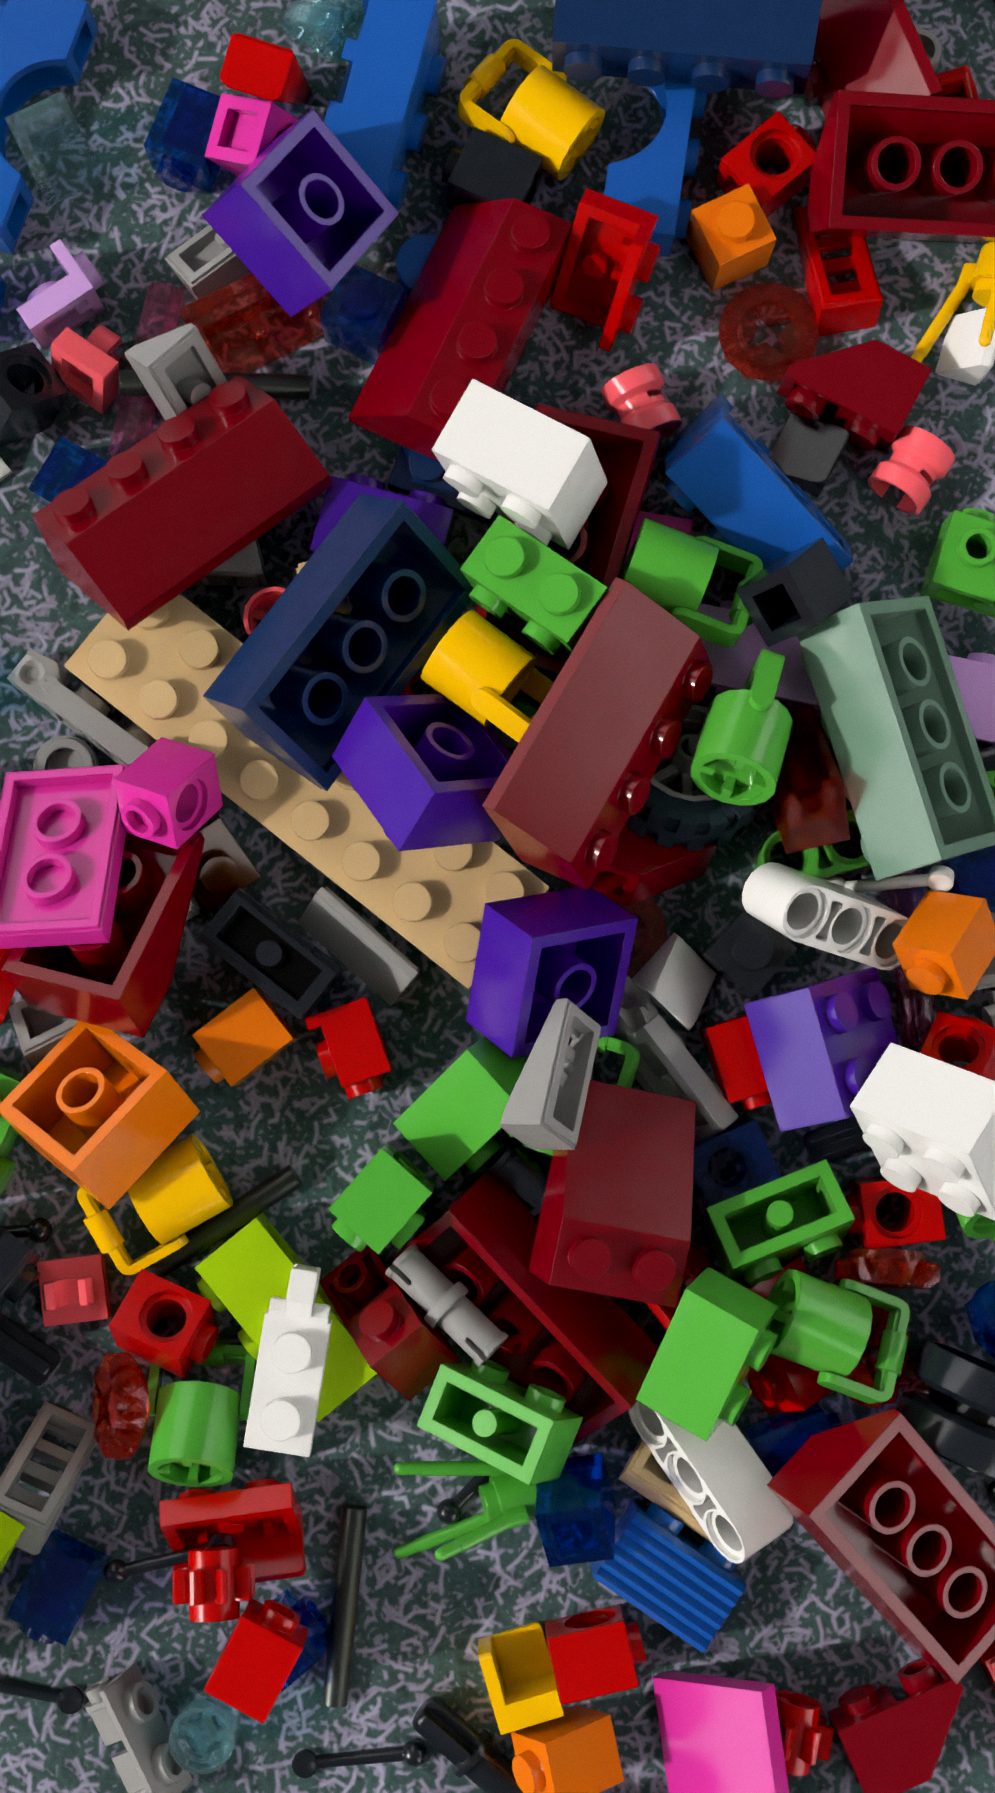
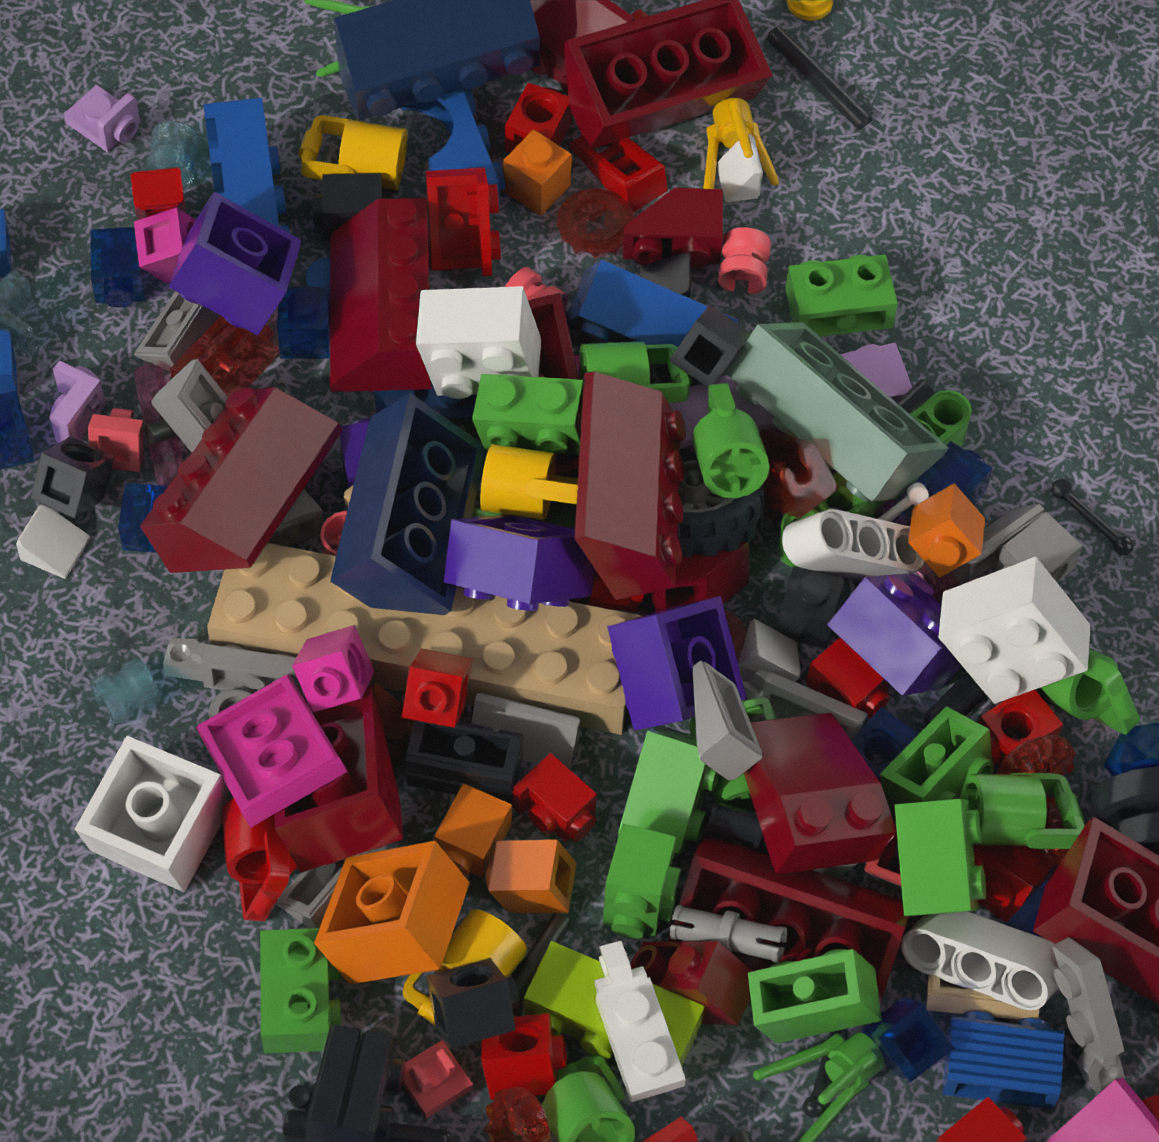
camera: 25 degrees left, 25 degrees down
(124, 1237) = (472, 1002): none -> black brick
(270, 872) = (437, 687): none -> red brick
(278, 1124) = (531, 876): none -> orange brick
(781, 1589) = (1092, 1013): none -> light grey hinge

